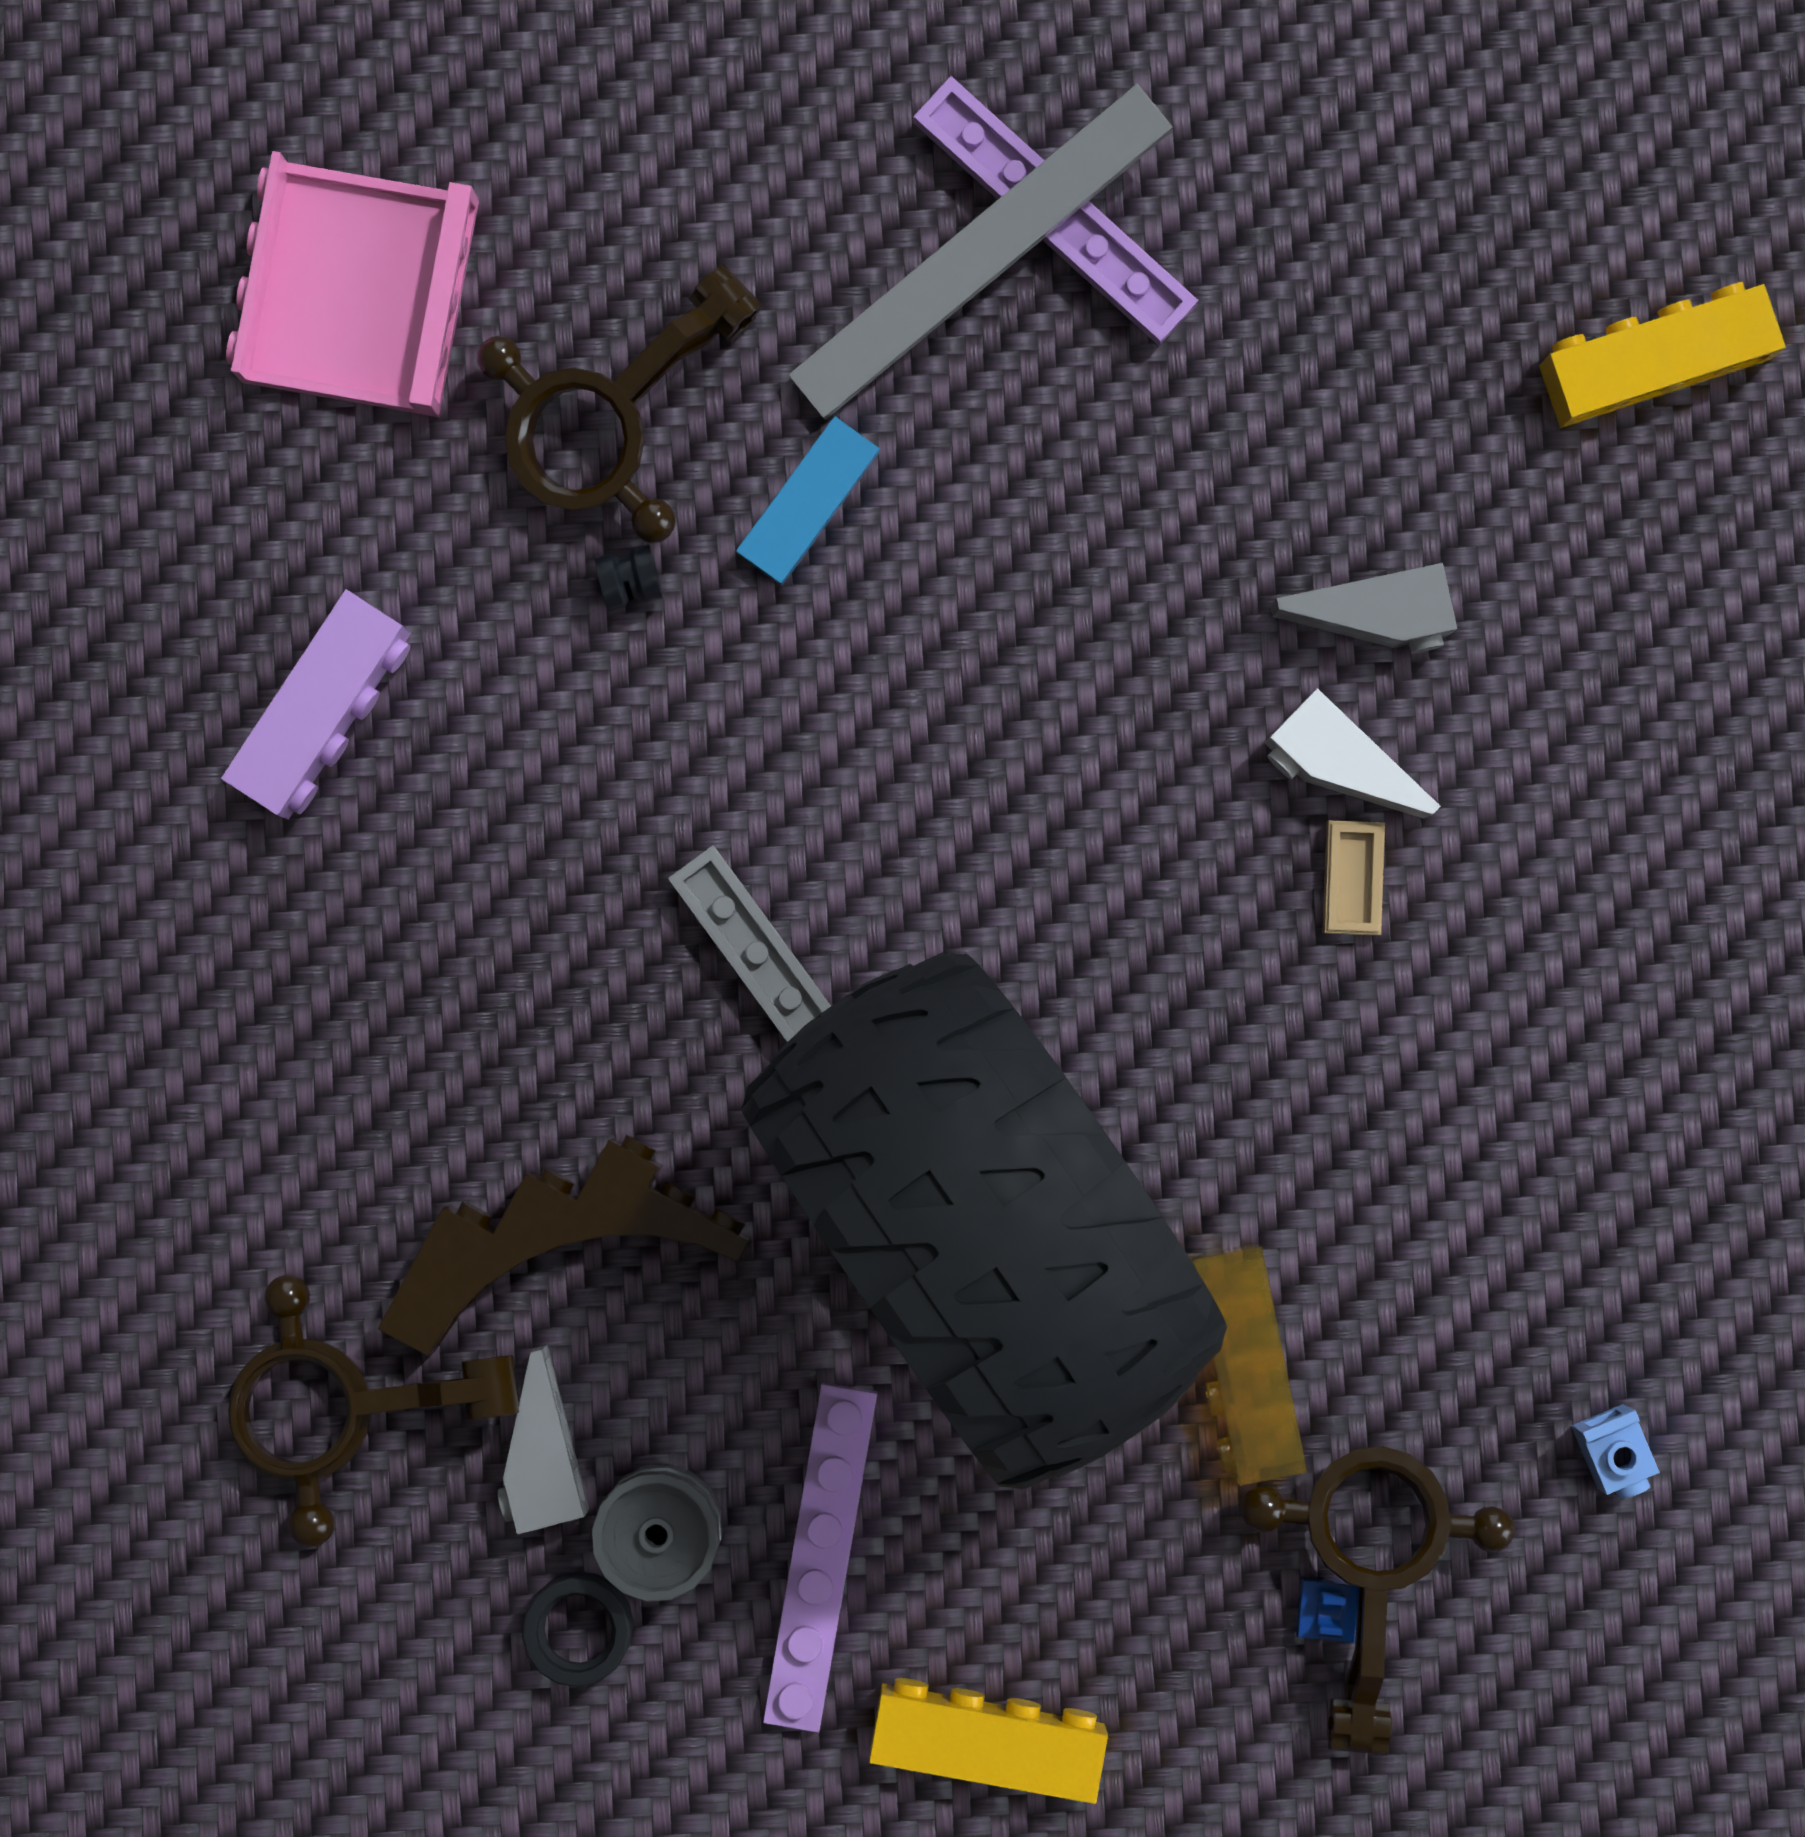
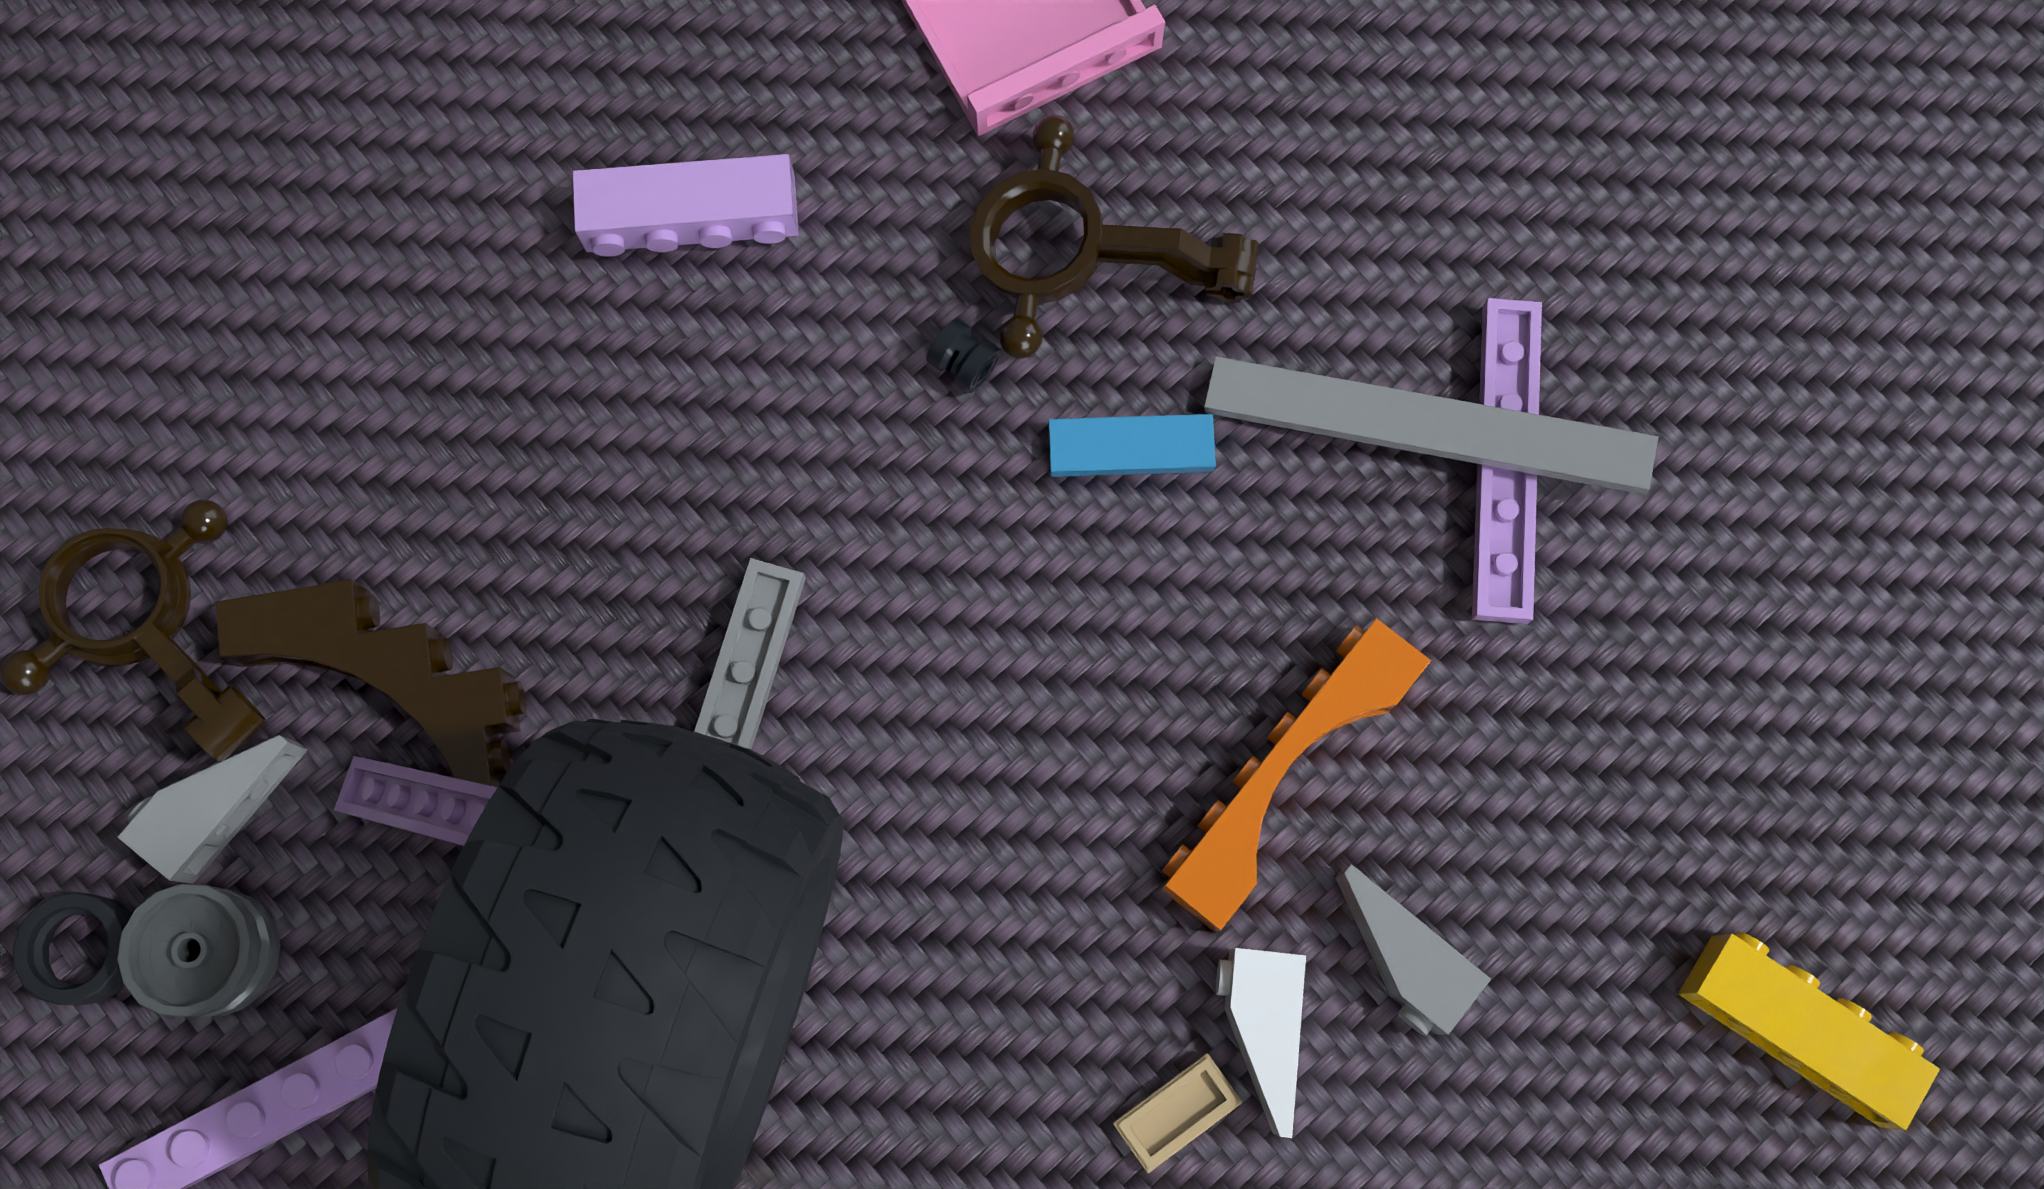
camera: 50 degrees right, 10 degrees down
(698, 1263) = (413, 799): none -> lavender plate
(1198, 697) = (1223, 864): none -> orange arch

